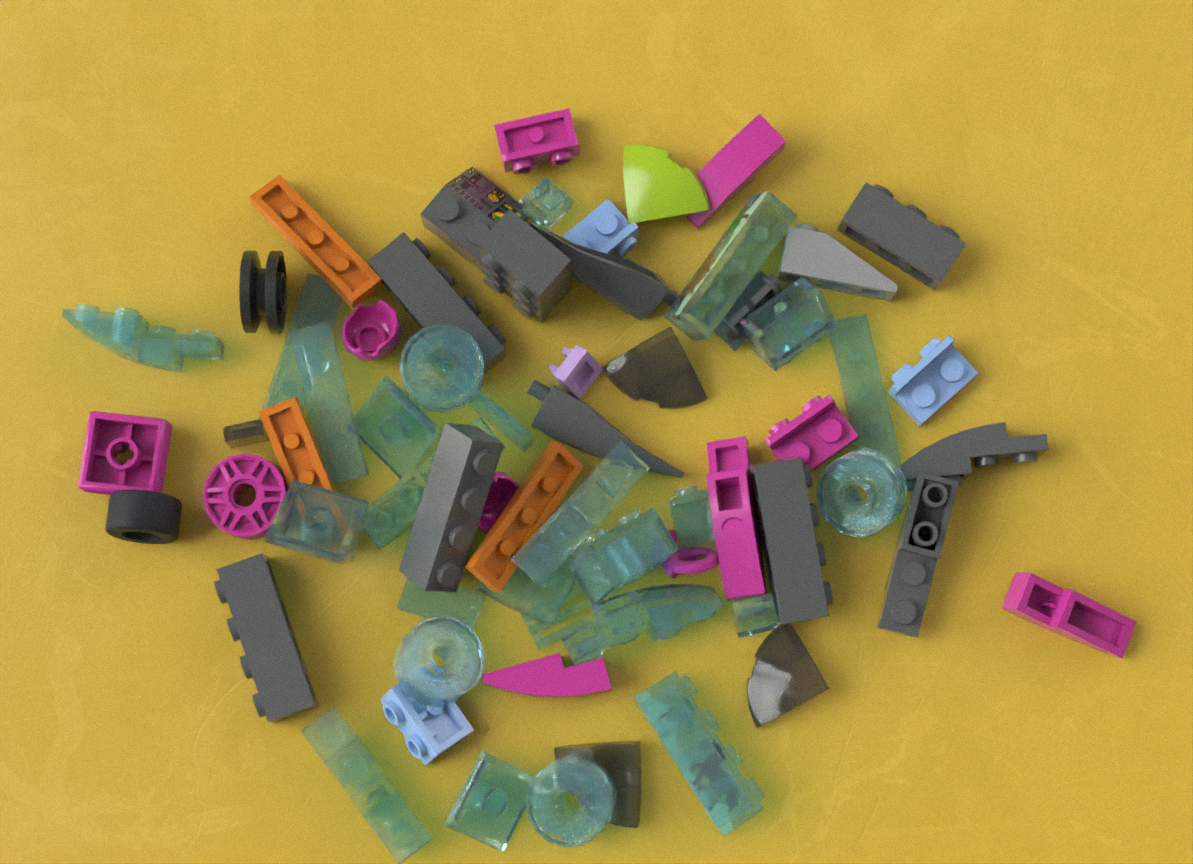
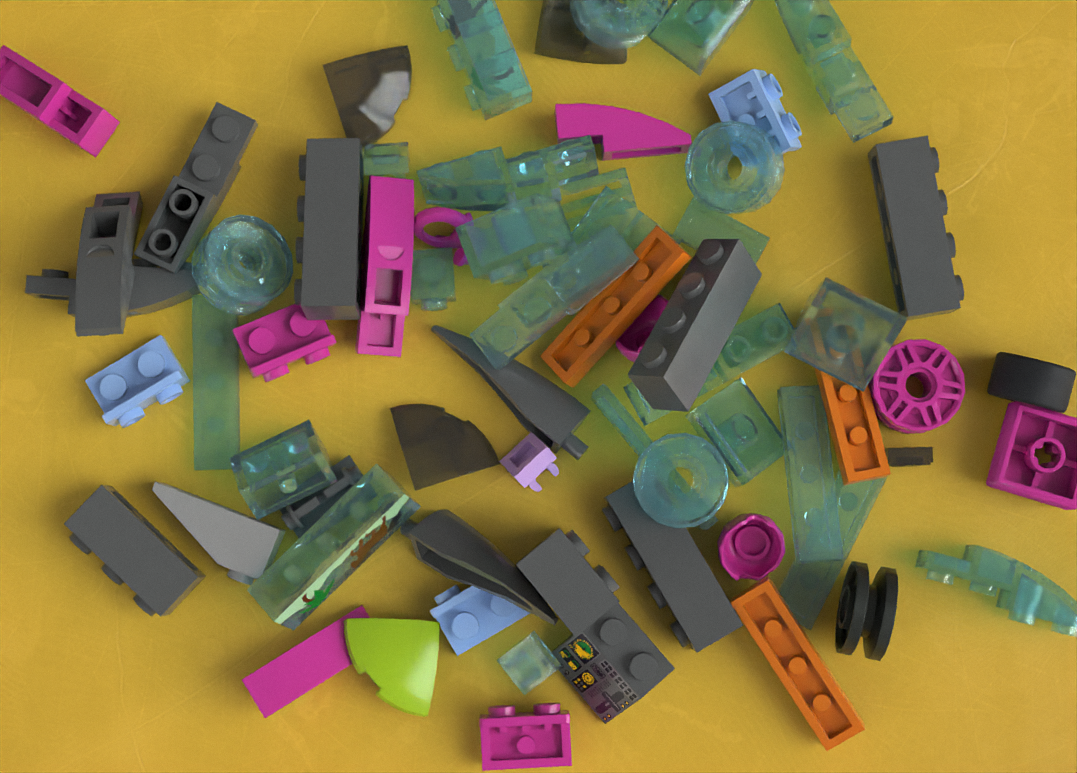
camera: 170 degrees left, 5 degrees up
(980, 467) = (105, 263): none -> dark grey slope

